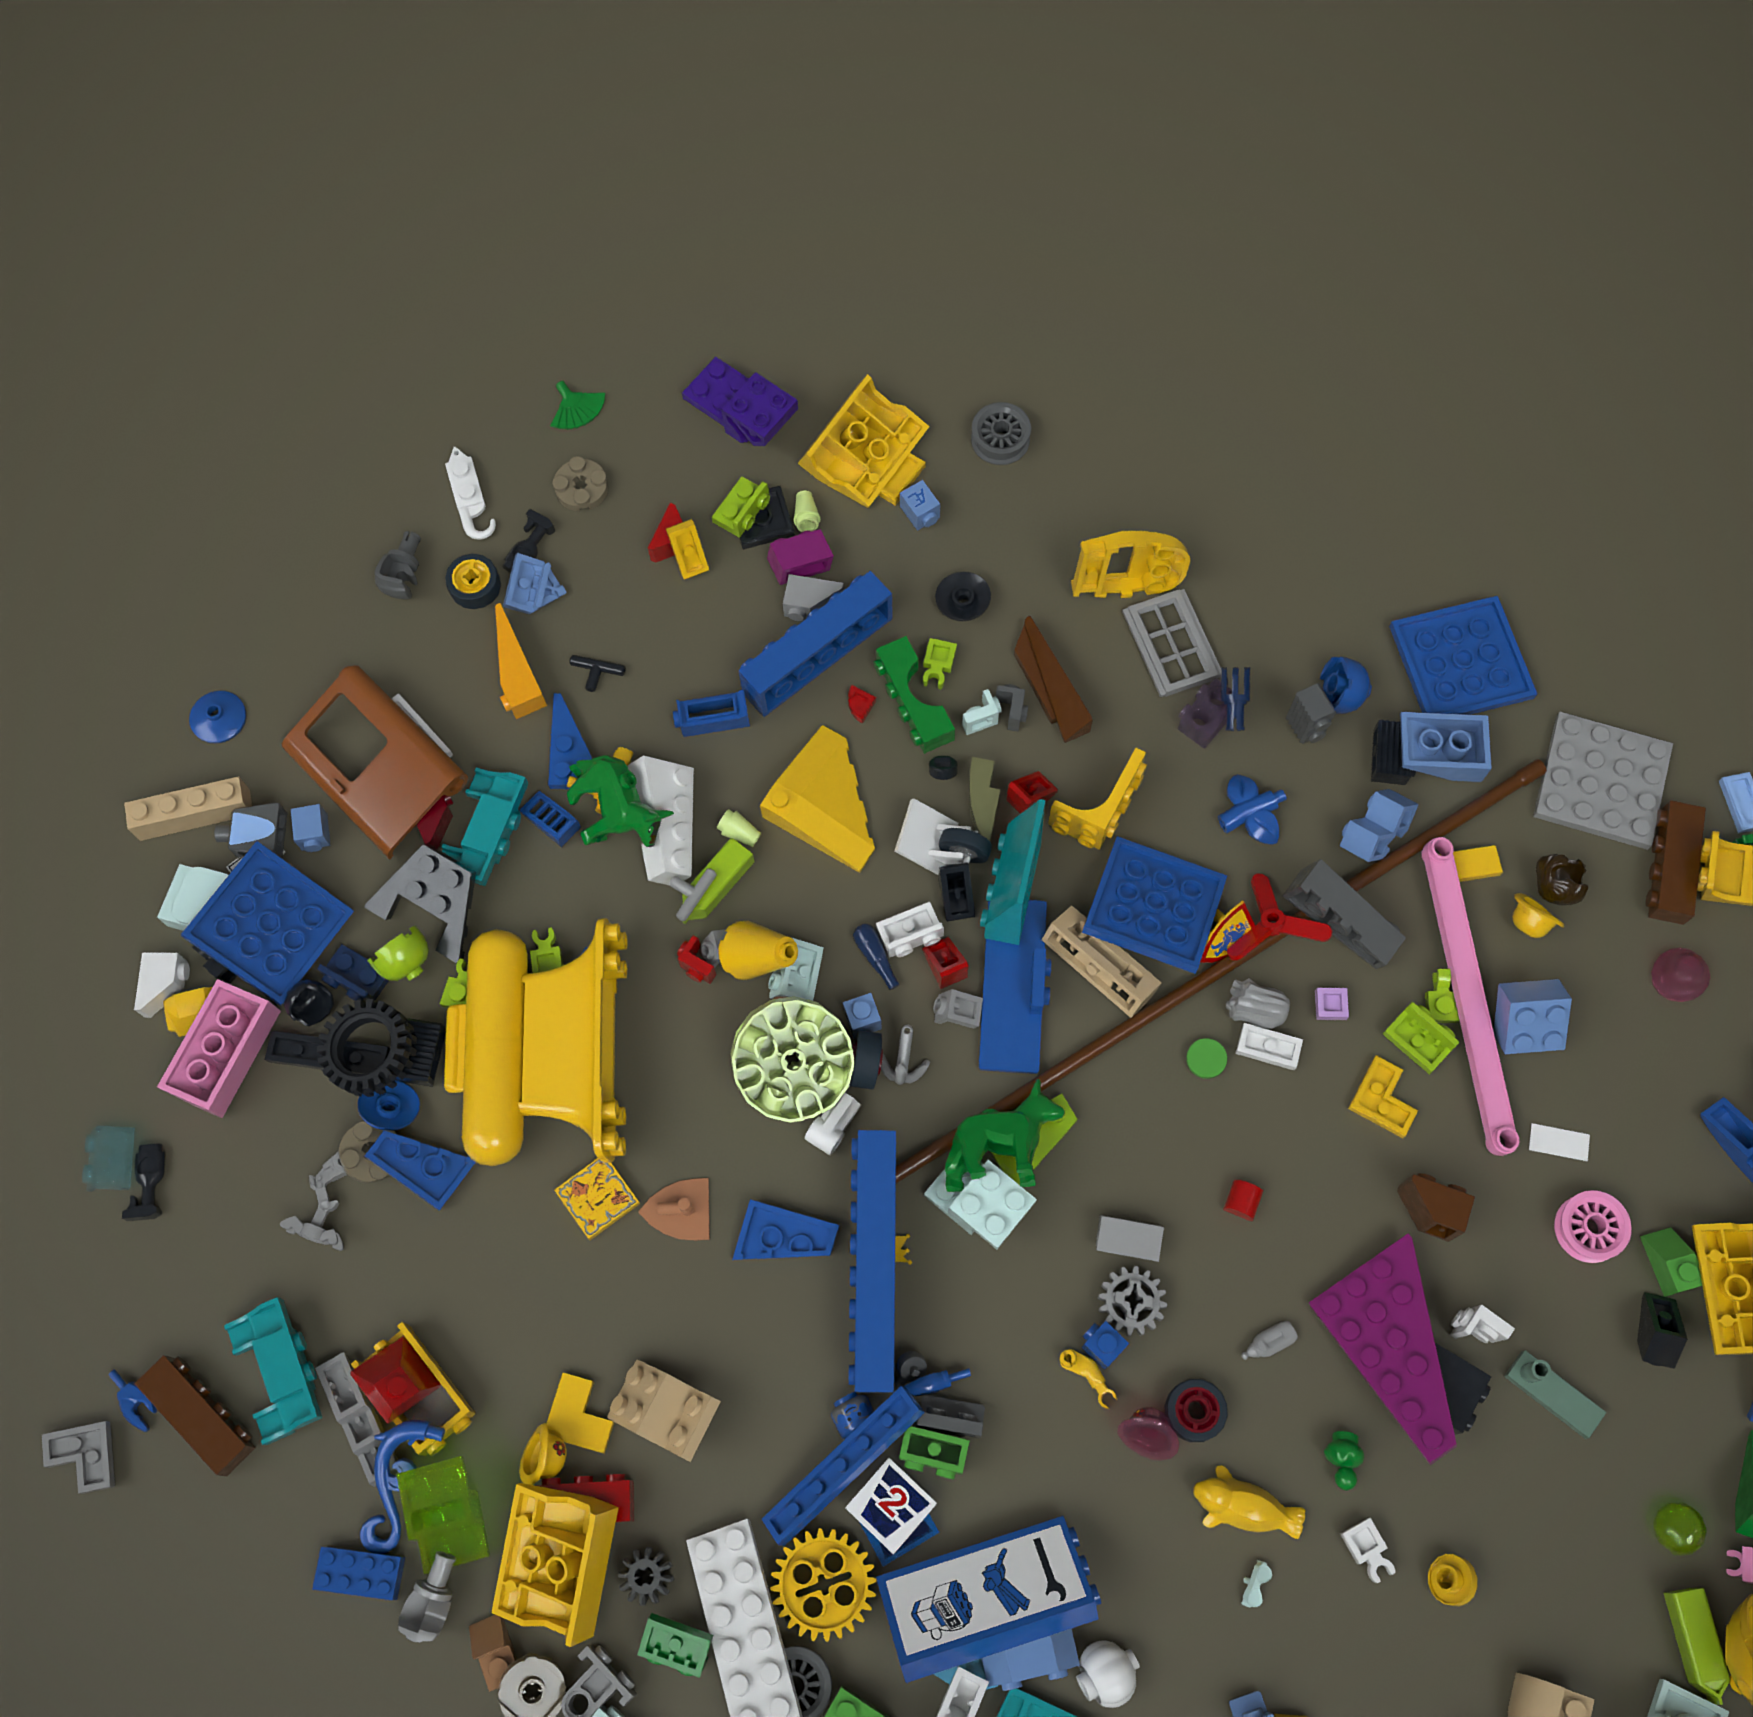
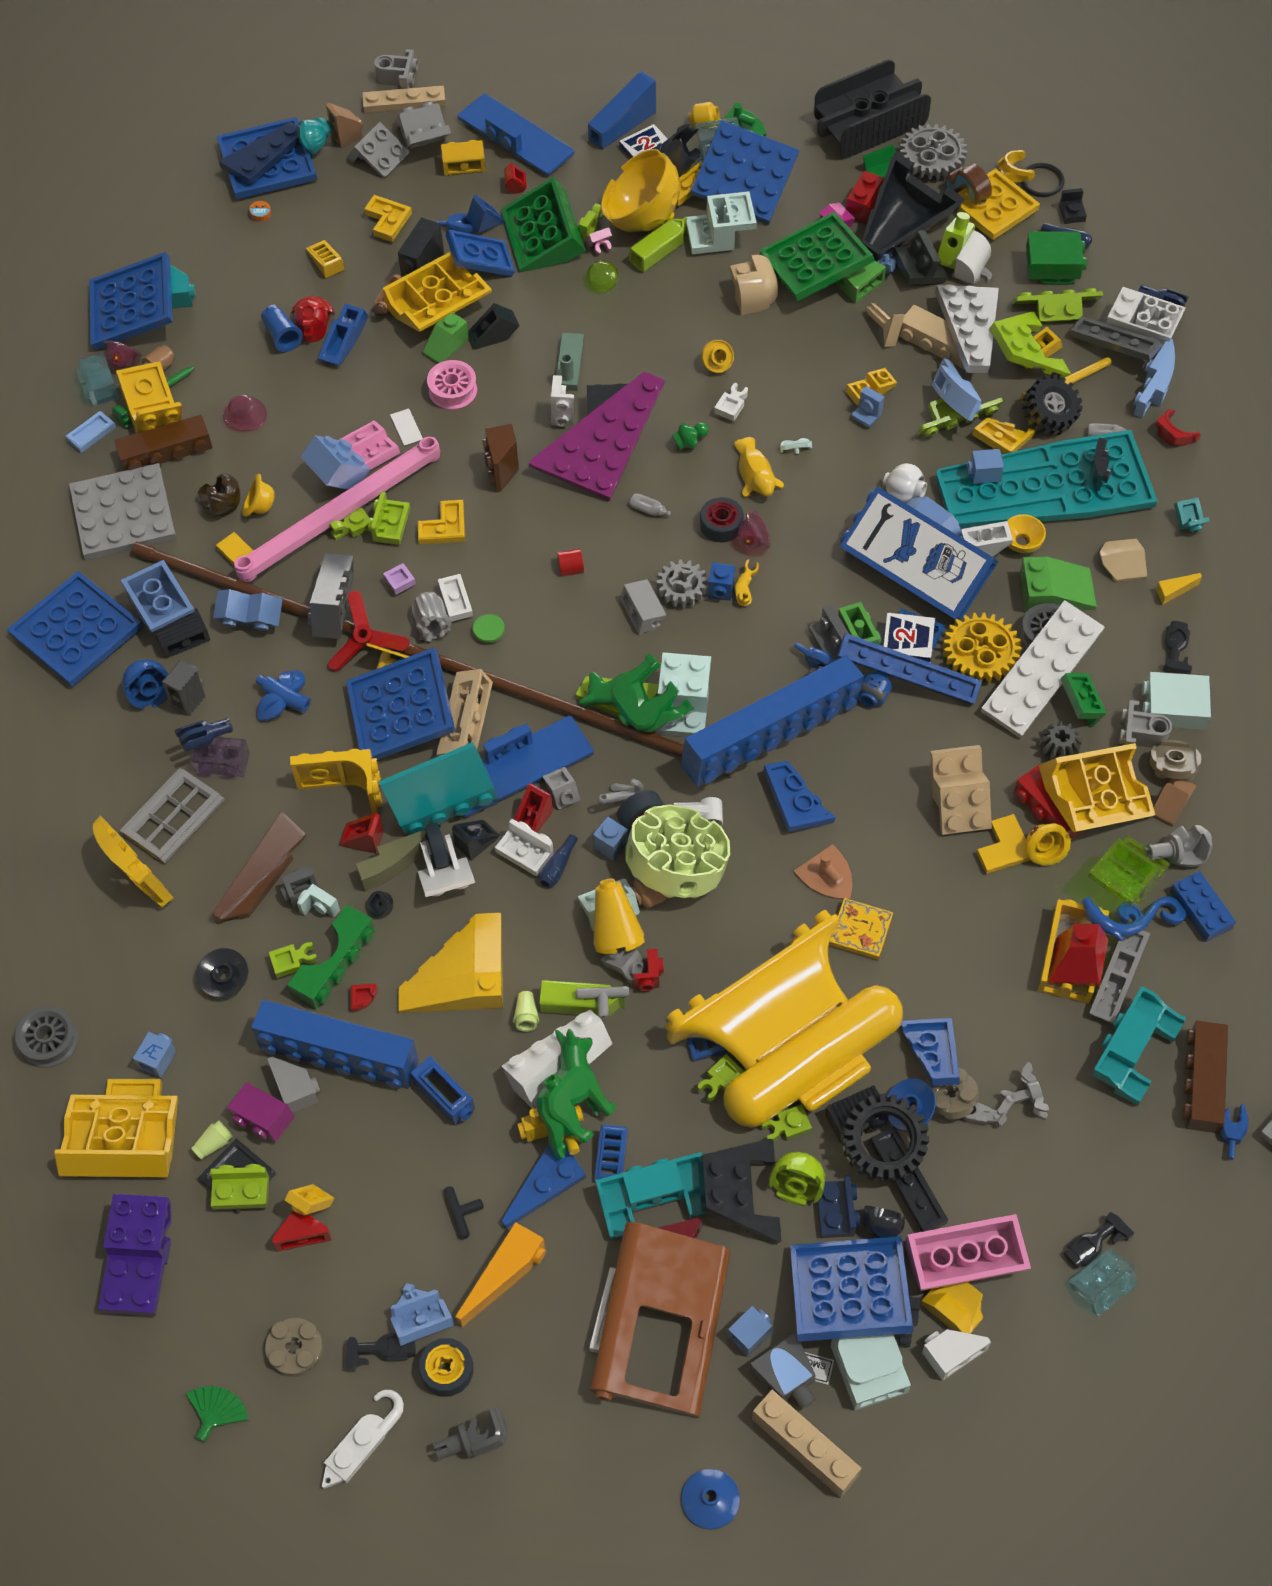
camera: 125 degrees left, 10 degrees down
(1550, 1080) = (372, 444): none -> bright pink slope

